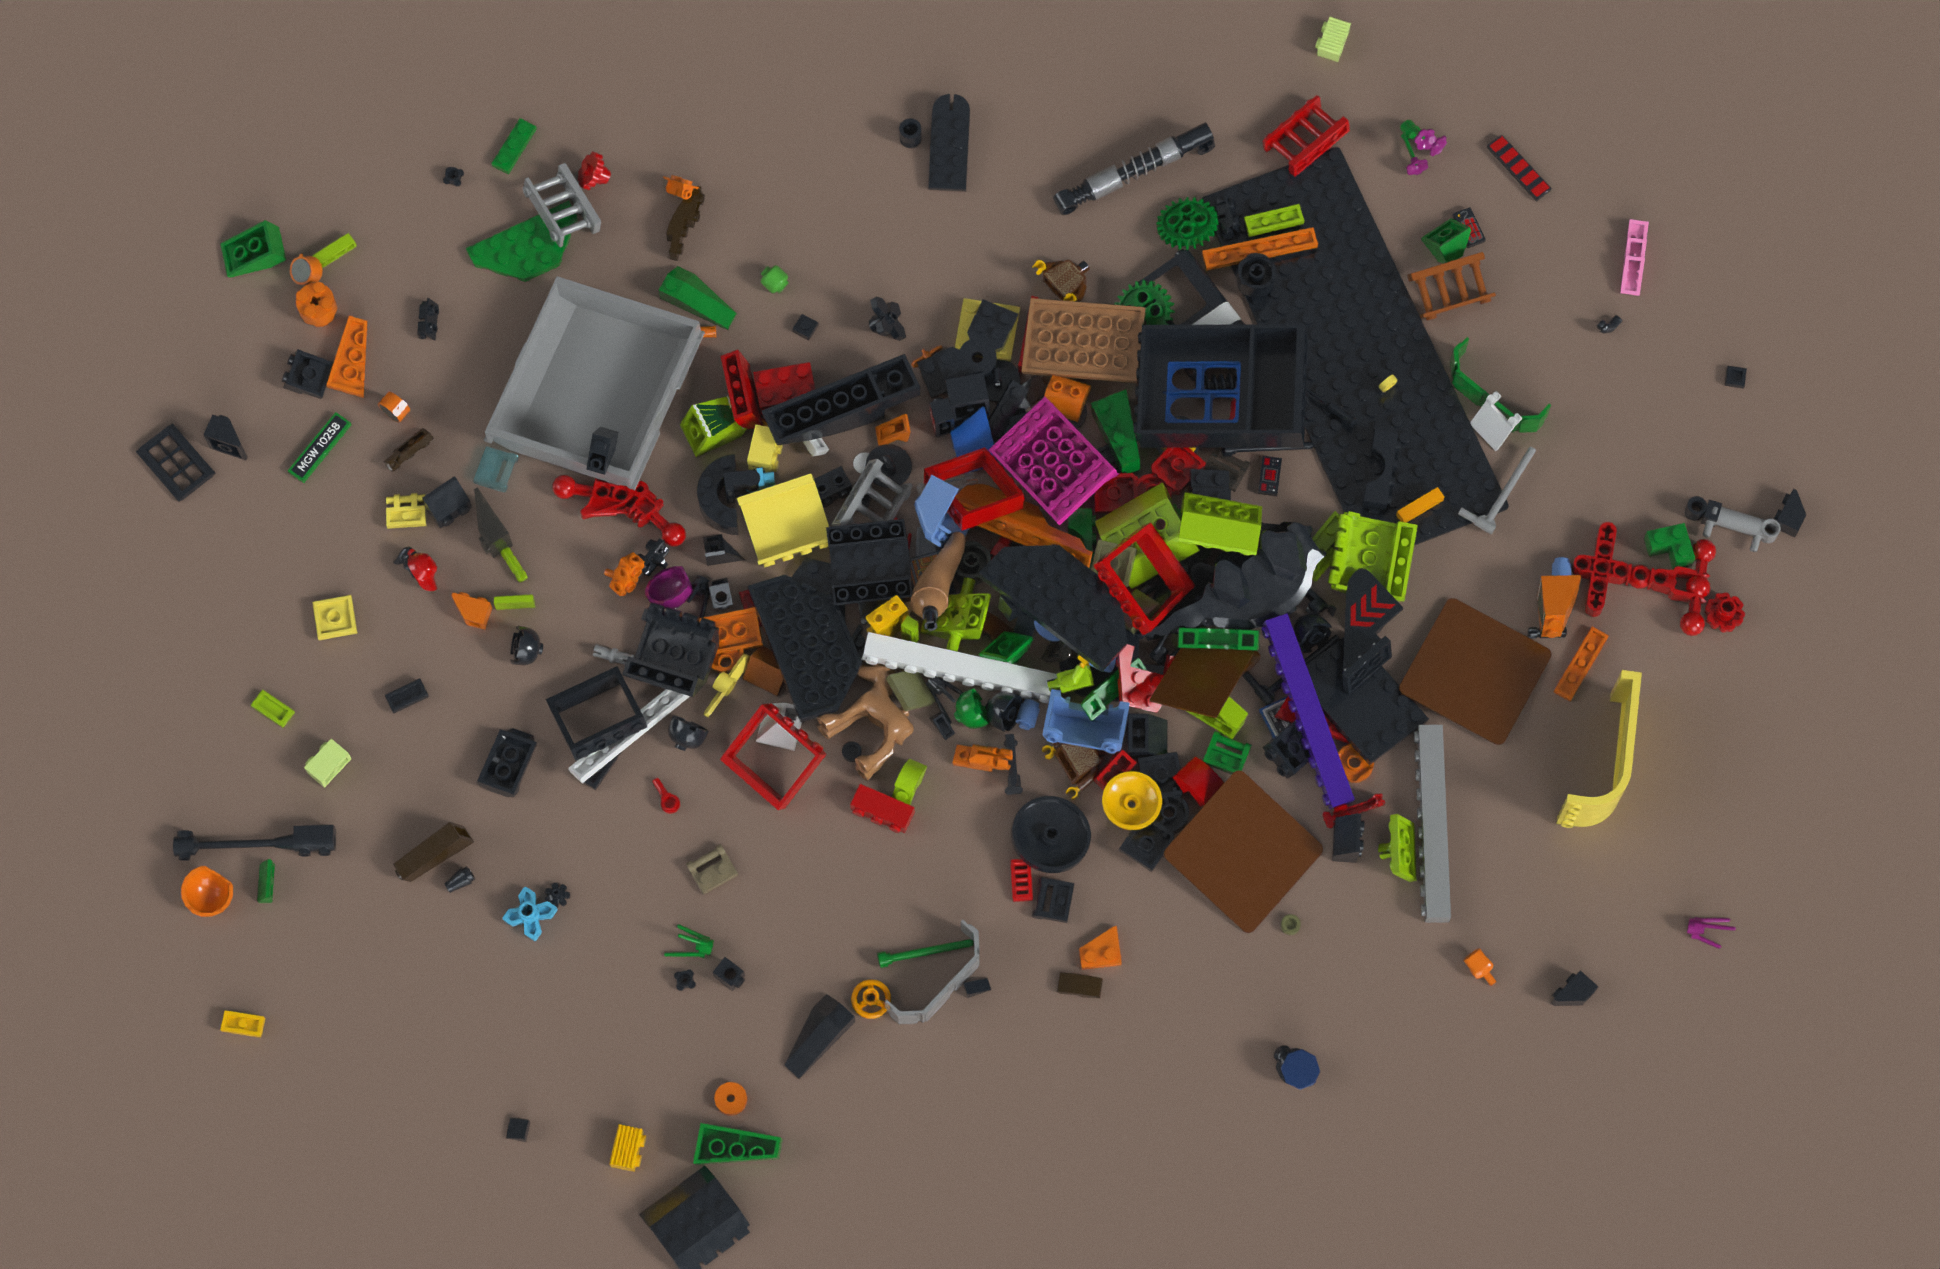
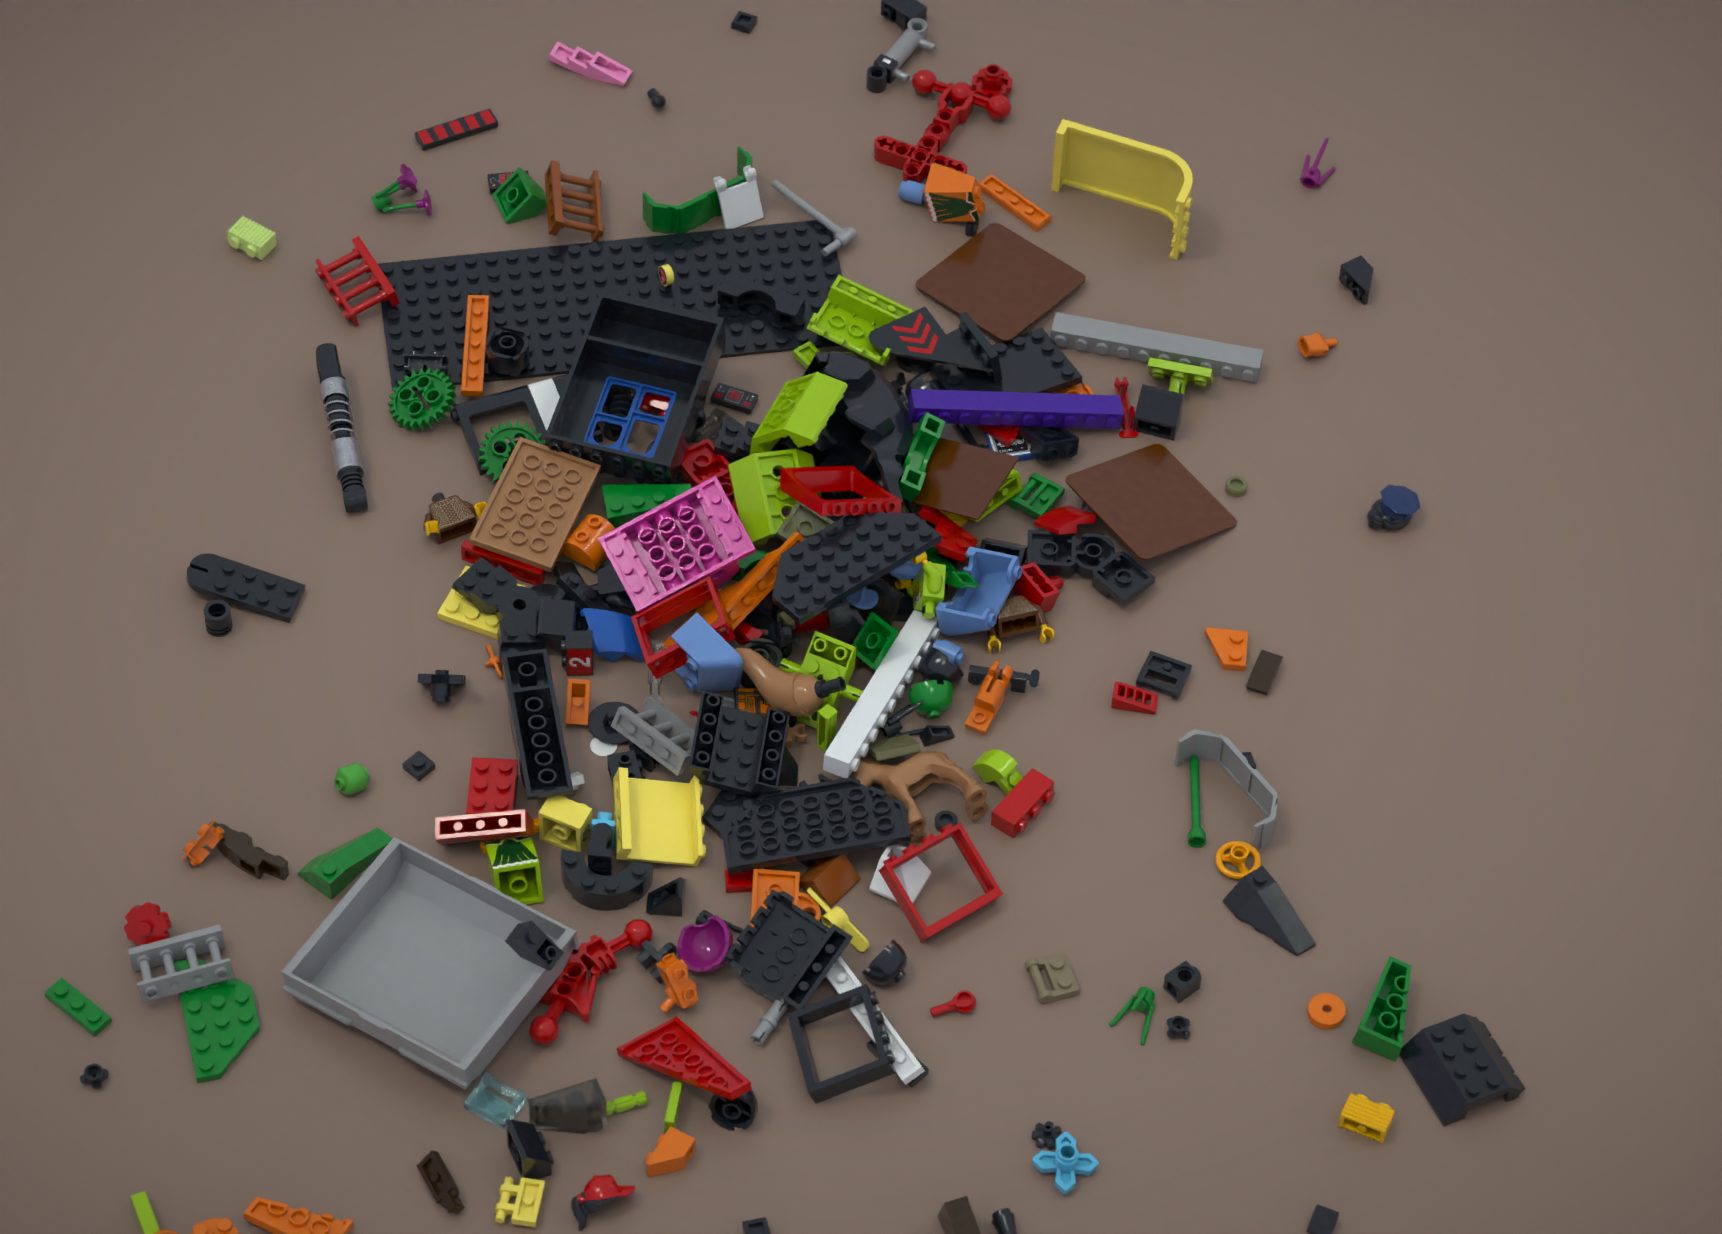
camera: 80 degrees left, 20 degrees down
(394, 407) = (383, 1185): orange piece -> none
(429, 311) = (267, 1132): black hinge -> none
(507, 762) = (875, 1149): black slope -> none
(555, 596) = (685, 1056): none -> red wing
(720, 585) = (725, 900): black brick -> none
(888, 617) = (810, 749): yellow panel -> none
(1051, 834) = (1092, 656): black dish -> none
(1134, 788) = (1081, 564): yellow dish -> none
(1273, 220) = (446, 327): lime plate -> none
(1420, 505) = (809, 281): light orange piece -> none
(1673, 541) = (912, 100): green brick -> none

